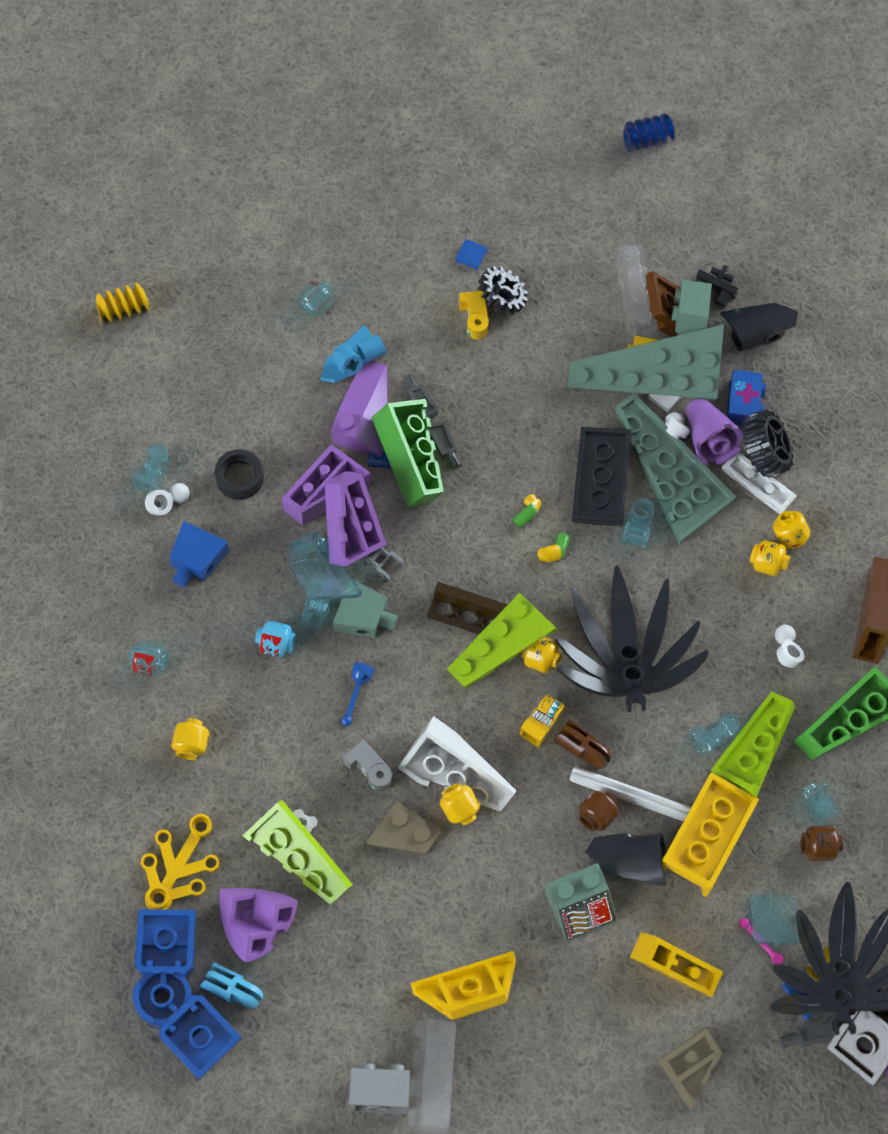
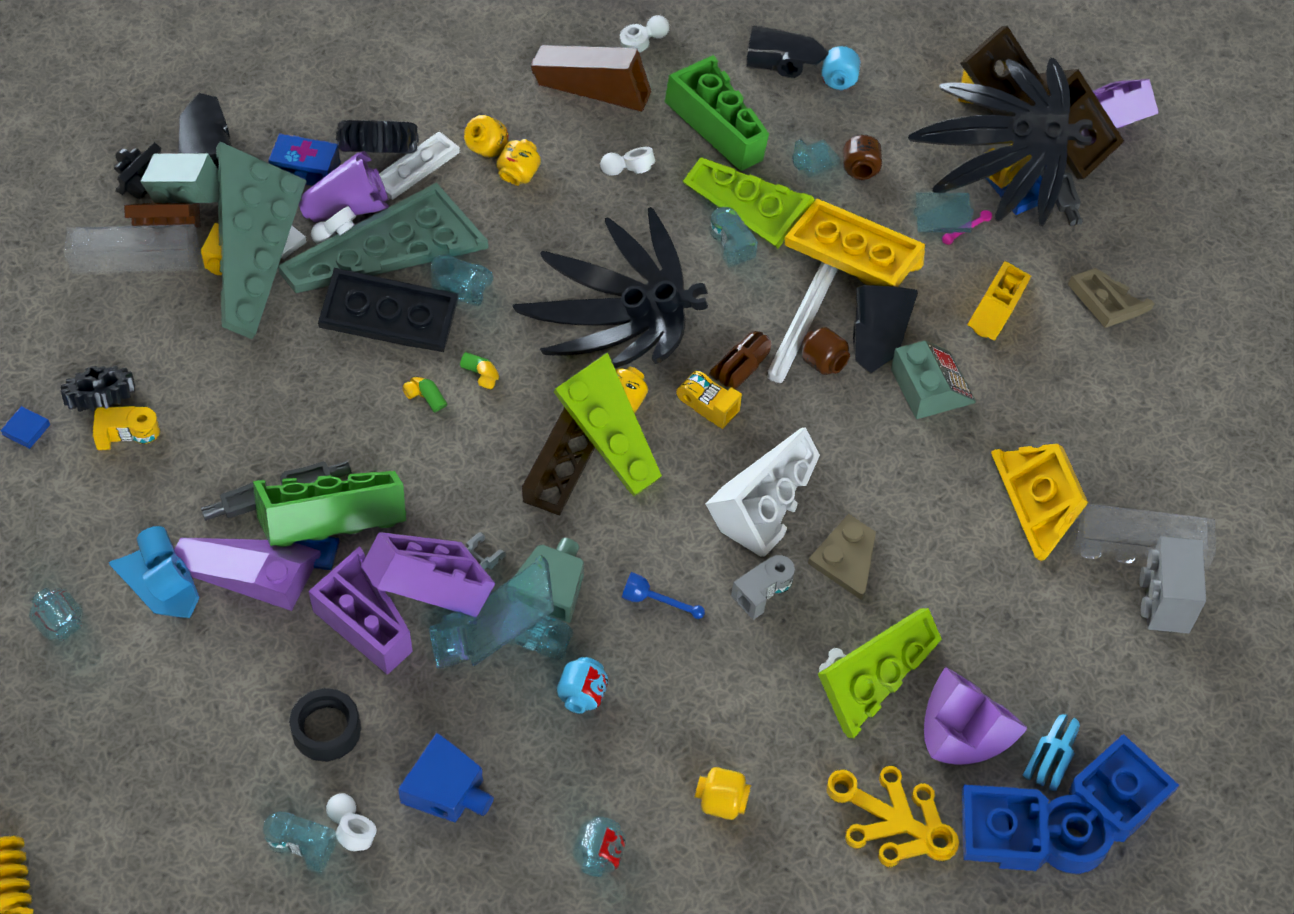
camera: 85 degrees left, 10 degrees down
(459, 804) = (817, 487): yellow head -> none

